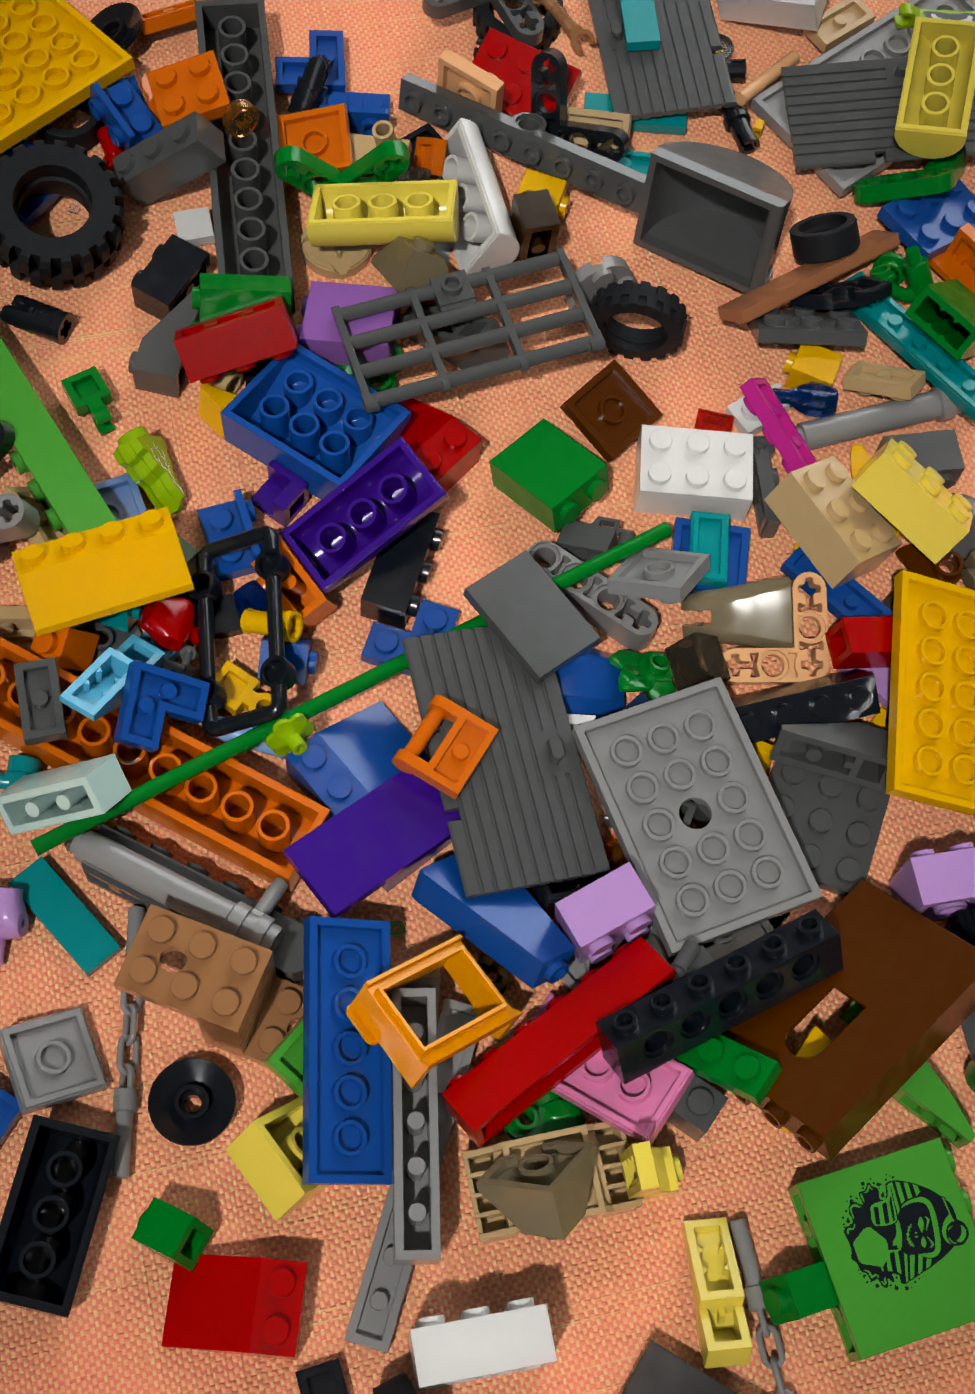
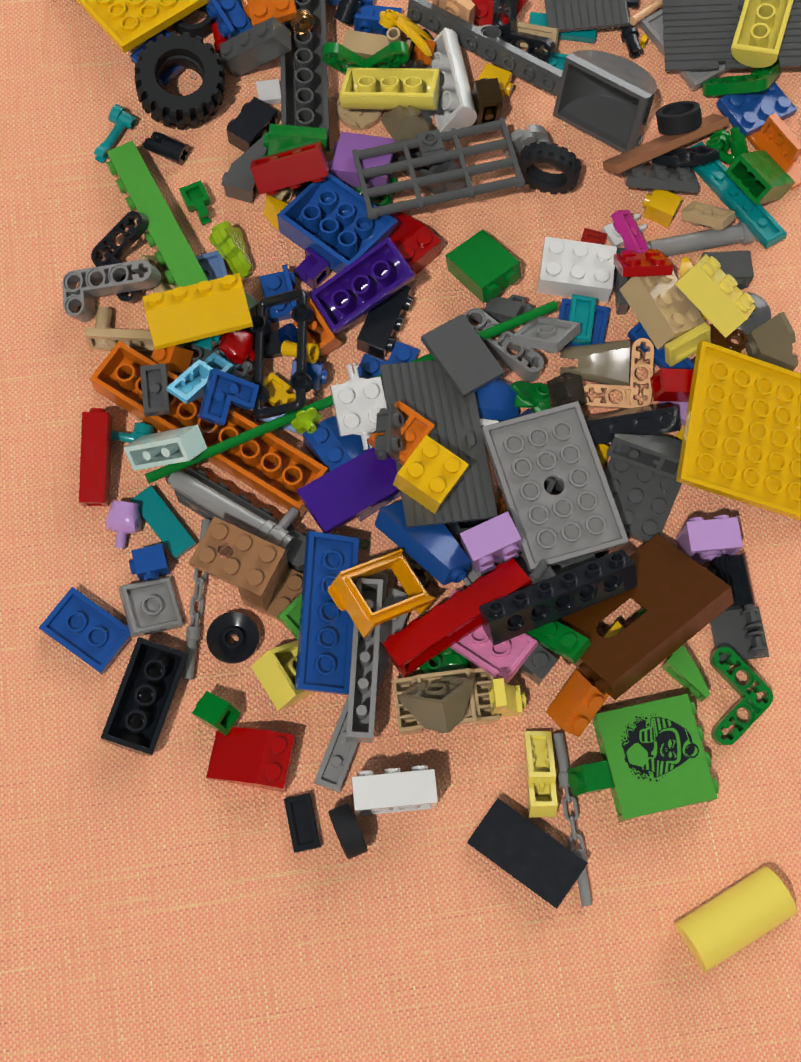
camera: 10 degrees right, 5 degrees up
(45, 986) = (149, 562): none -> blue brick
(320, 132) = (353, 33): orange plate -> none
(374, 706) = (358, 404): none -> white plate
(378, 108) = (396, 19): none -> yellow plant
(431, 765) = (389, 422): none -> dark grey hinge
(498, 809) = (430, 474): none -> yellow brick
(610, 410) = (527, 226): reddish brown hinge -> none
(765, 1170) = (576, 704): none -> orange brick
(798, 458) = (642, 264): none -> red plate
(810, 399) = (657, 225): clear blue piece -> none
(875, 578) = (686, 344): none -> light yellow tile

